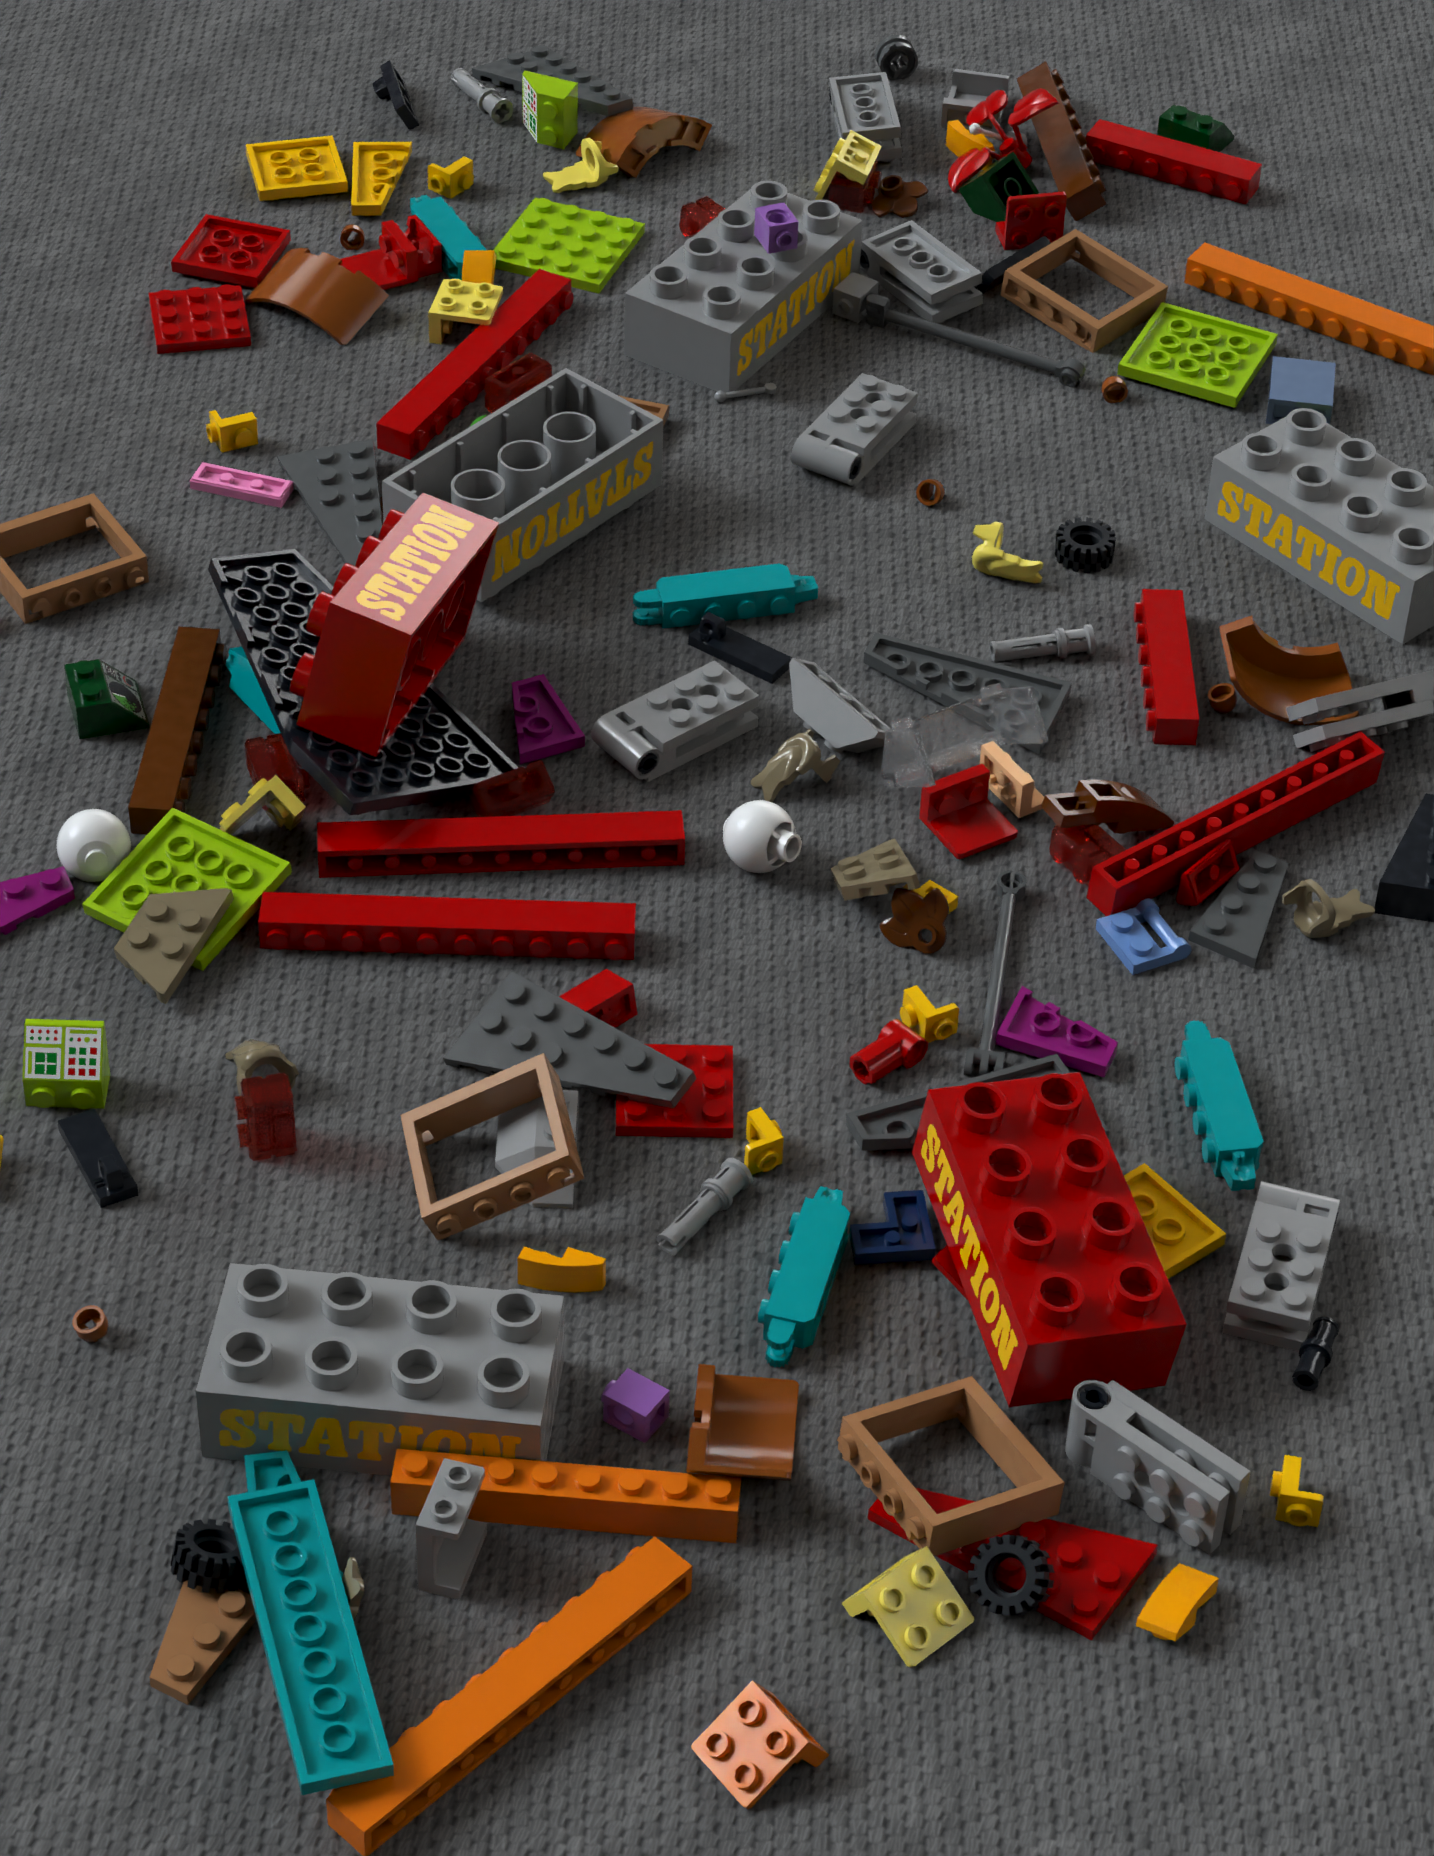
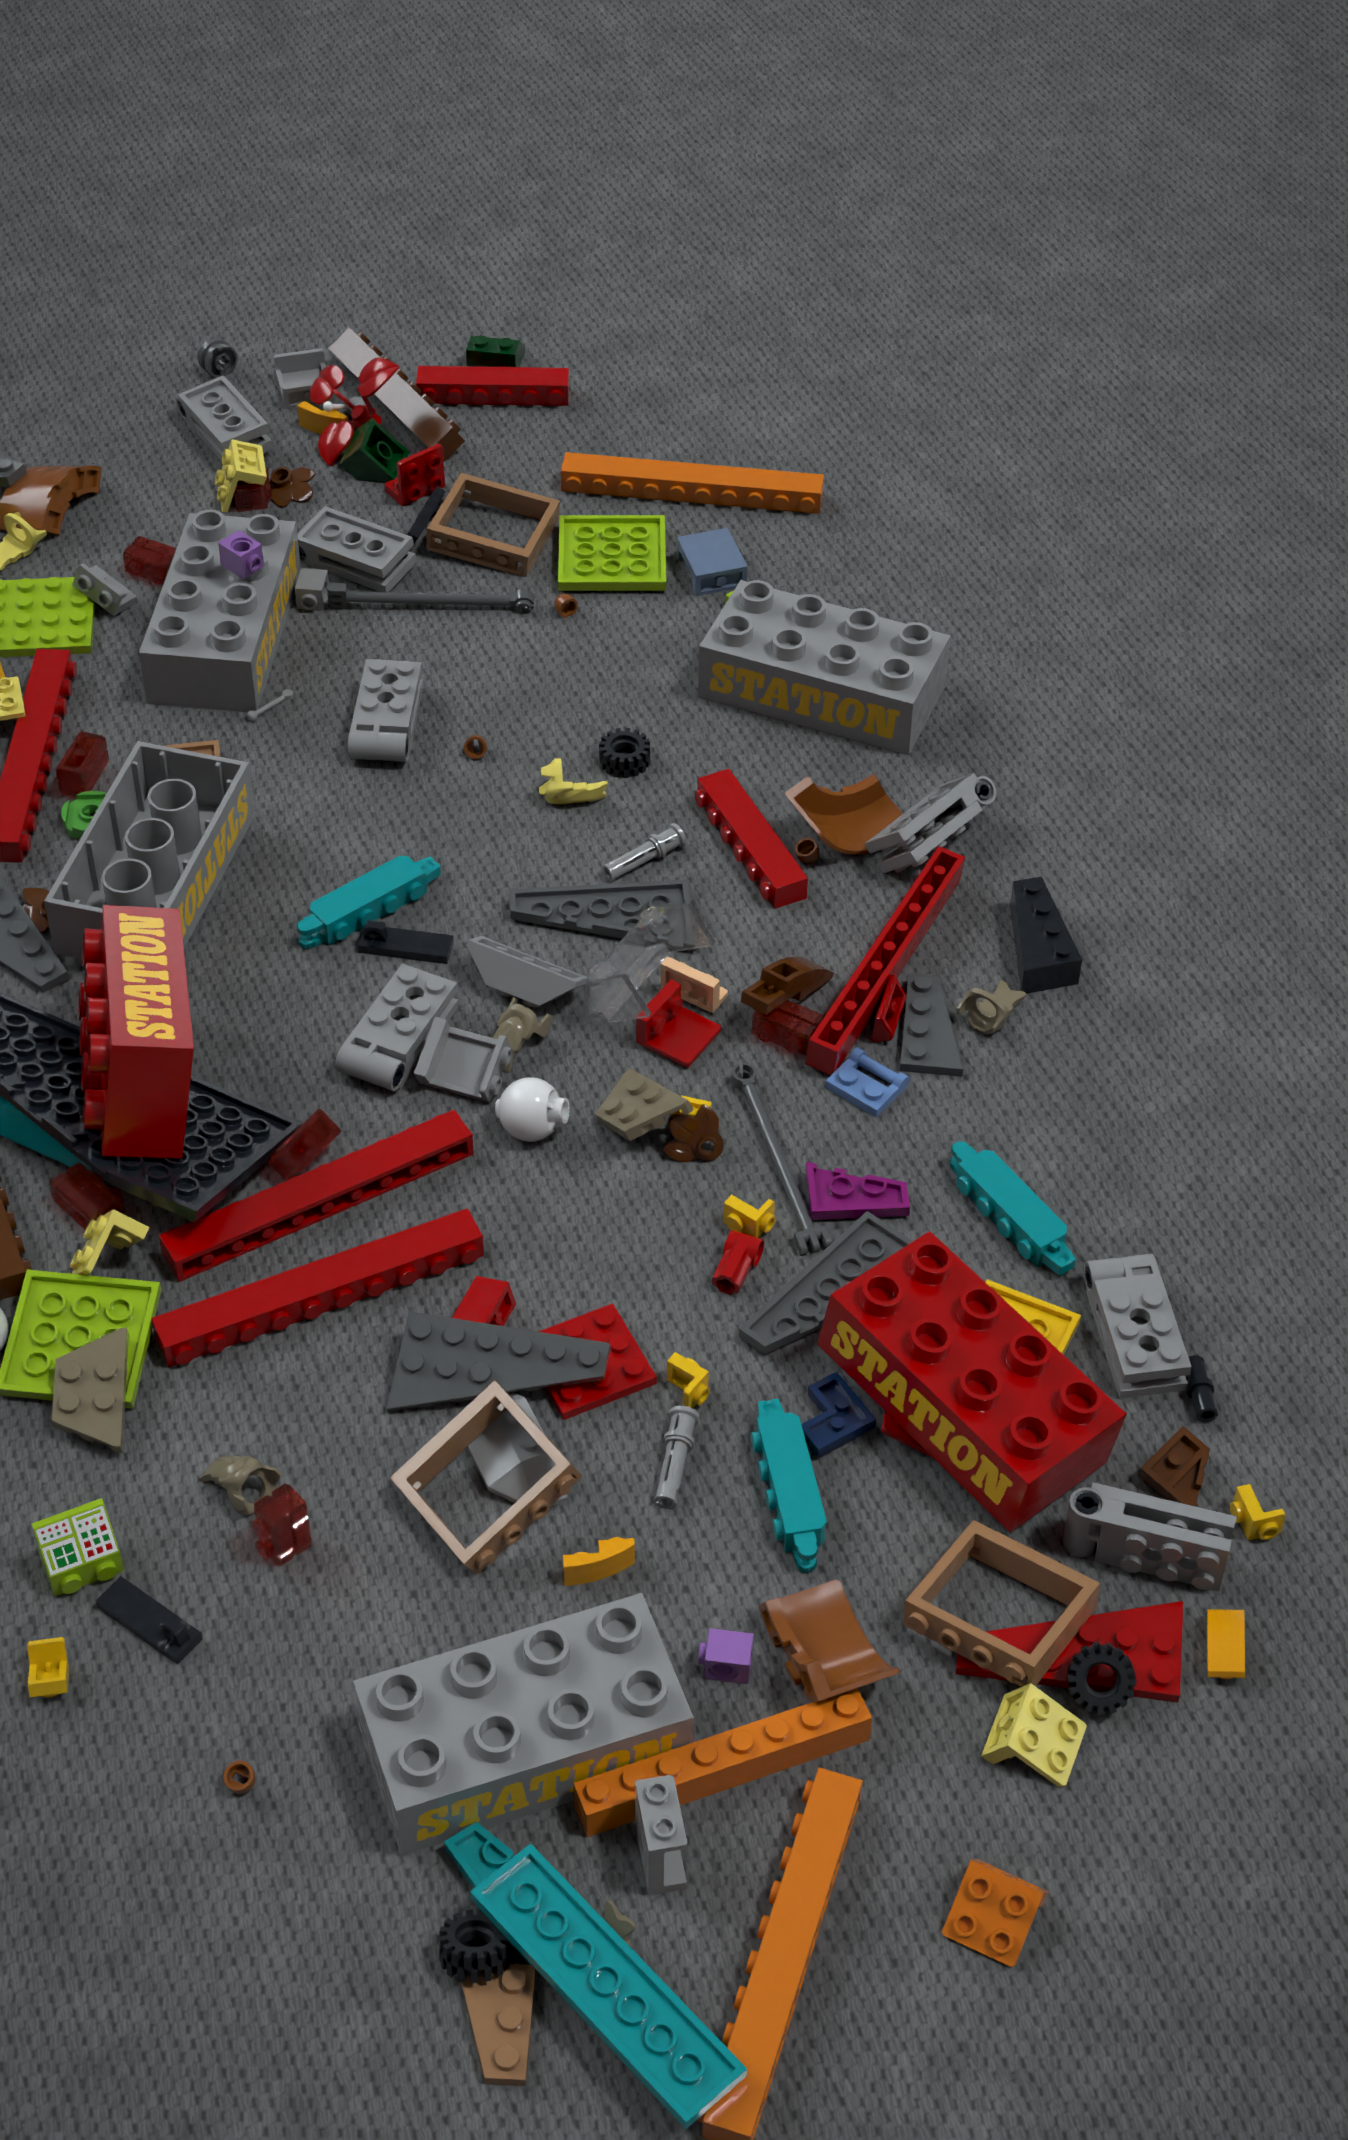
camera: 25 degrees left, 5 degrees up
(542, 721) = (283, 1067): magenta wing -> none
(642, 235) = (103, 589): none -> light grey bracket
(720, 769) = (463, 1061): none -> light grey panel
(1238, 1417) = (1177, 1468): none -> reddish brown wing

